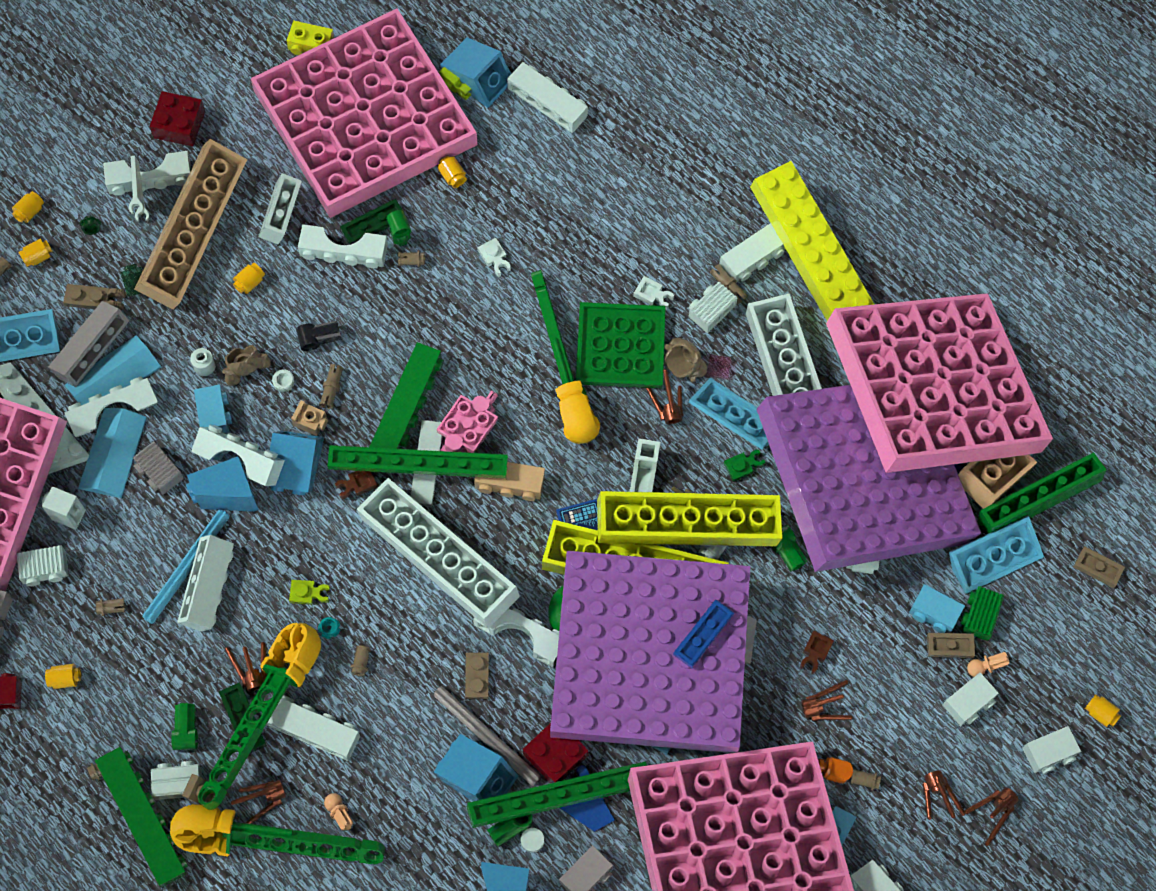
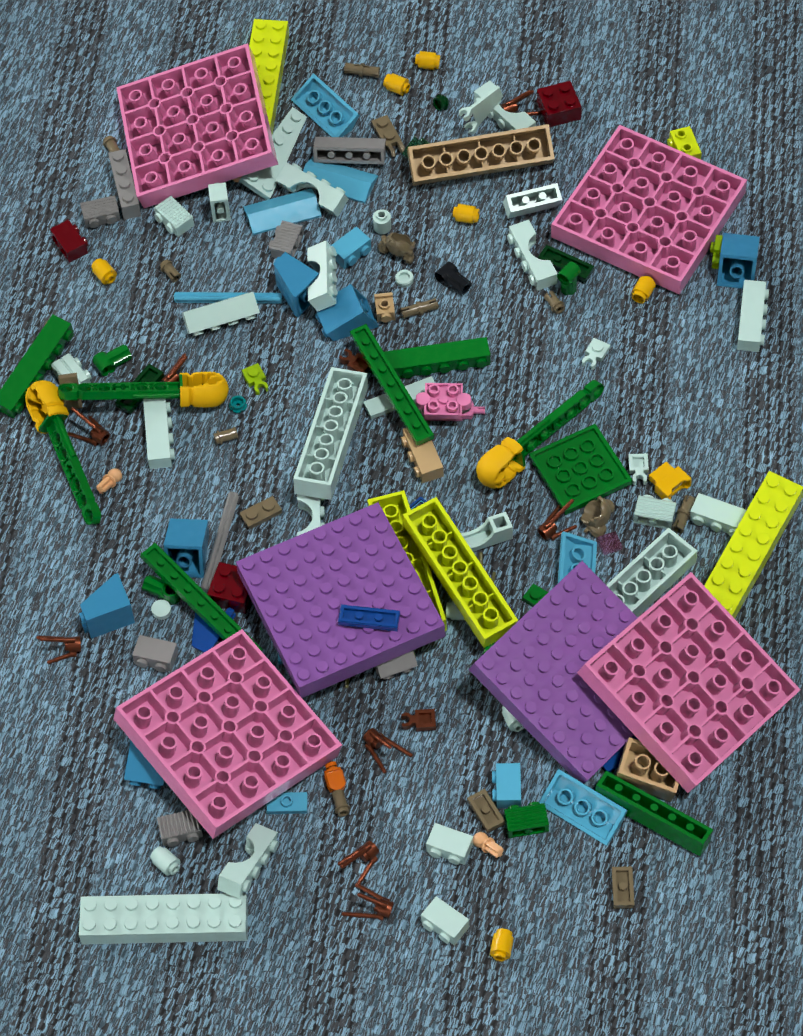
camera: 65 degrees right, 10 degrees down
(147, 163) = (511, 105): none -> copper plant
(685, 275) = (669, 480): none -> yellow piece

